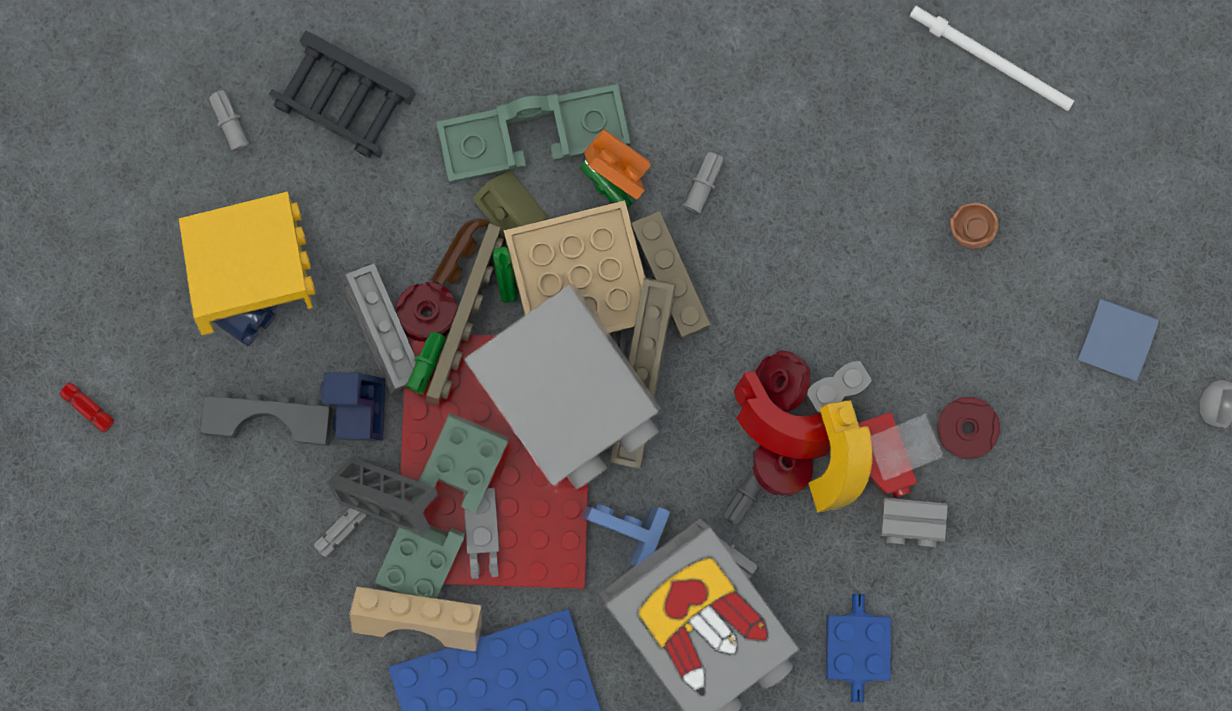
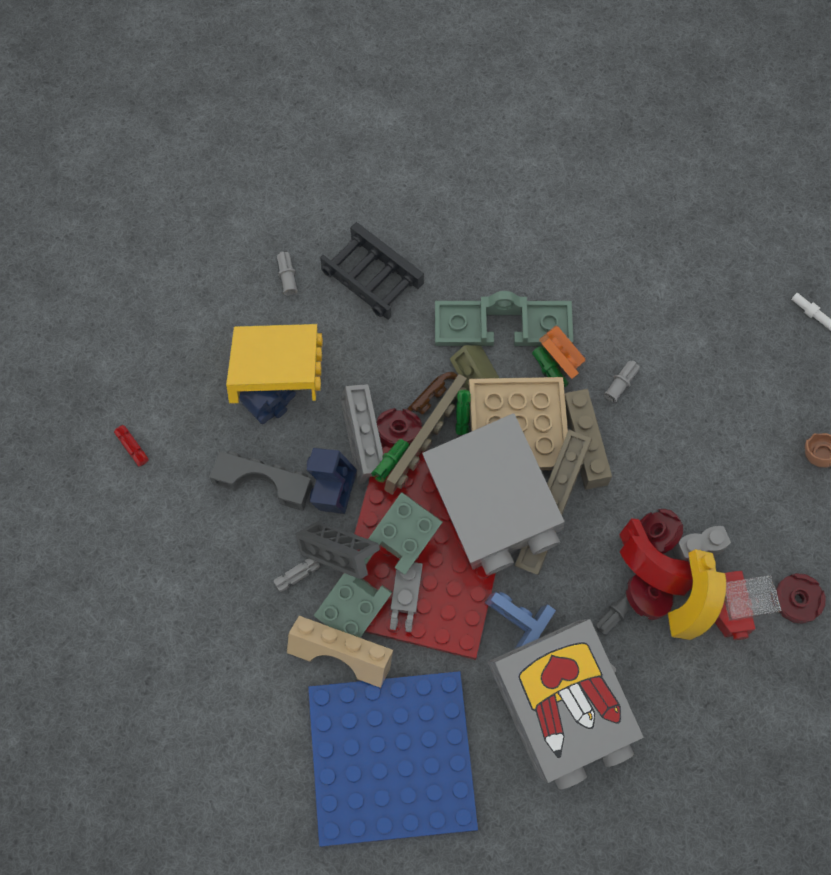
camera: 10 degrees right, 15 degrees down
(858, 647) = (687, 753): blue plate -> none
(913, 520) = (747, 660): light grey brick -> none

